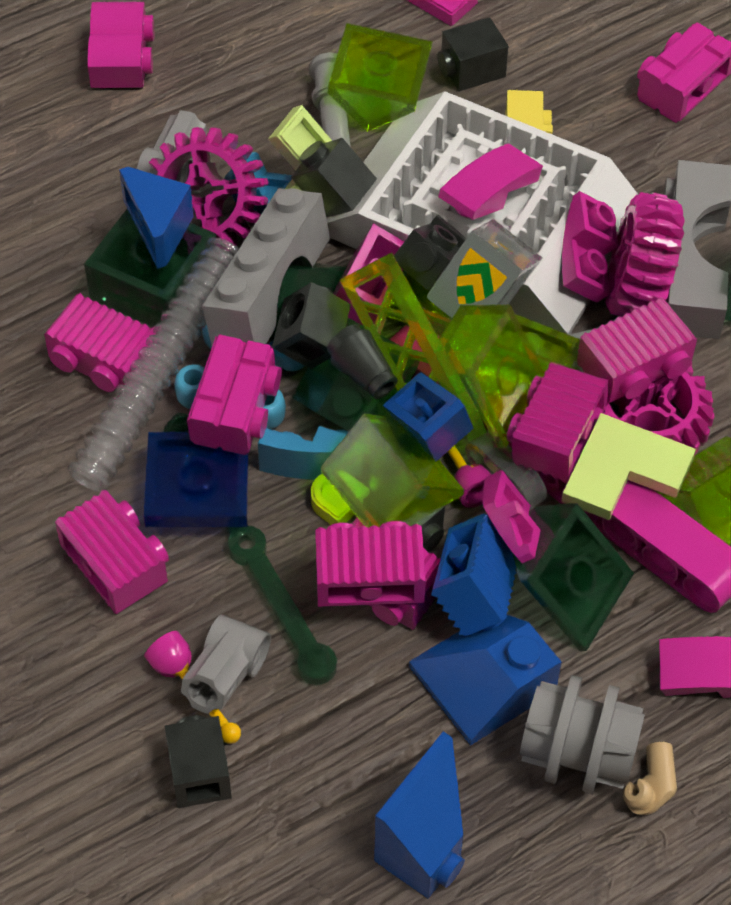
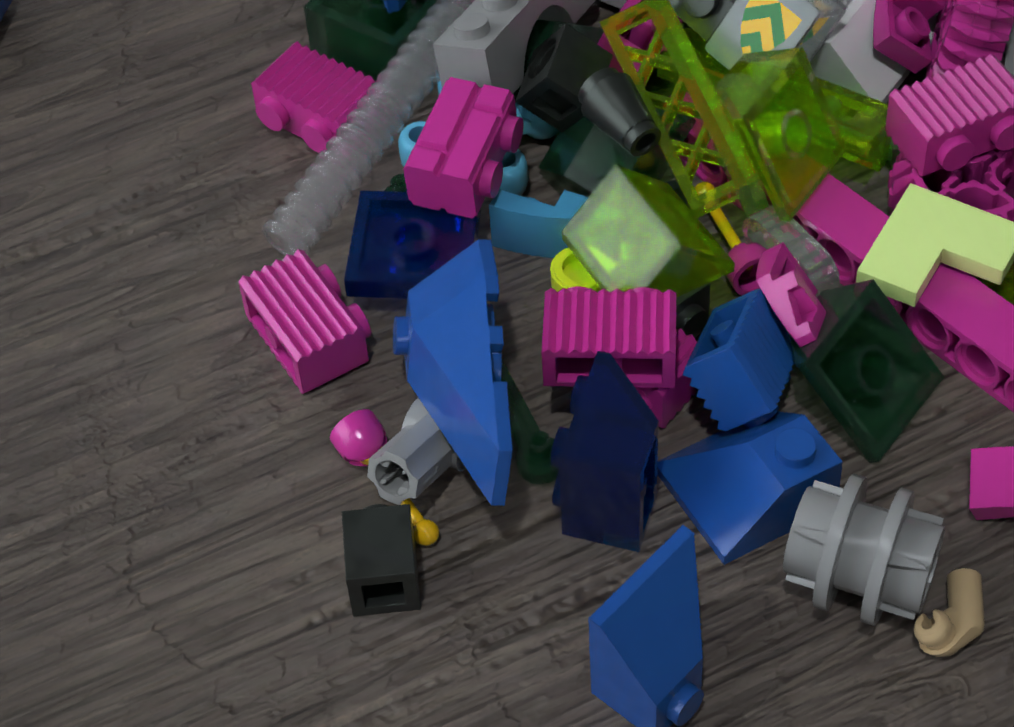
camera: 10 degrees right, 5 degrees down
(250, 594) = (457, 363): none -> blue wedge
(374, 667) = (606, 460): none -> clear blue slope
(430, 415) = (699, 173): blue slope -> none
(557, 420) = (855, 188): dark pink brick -> none

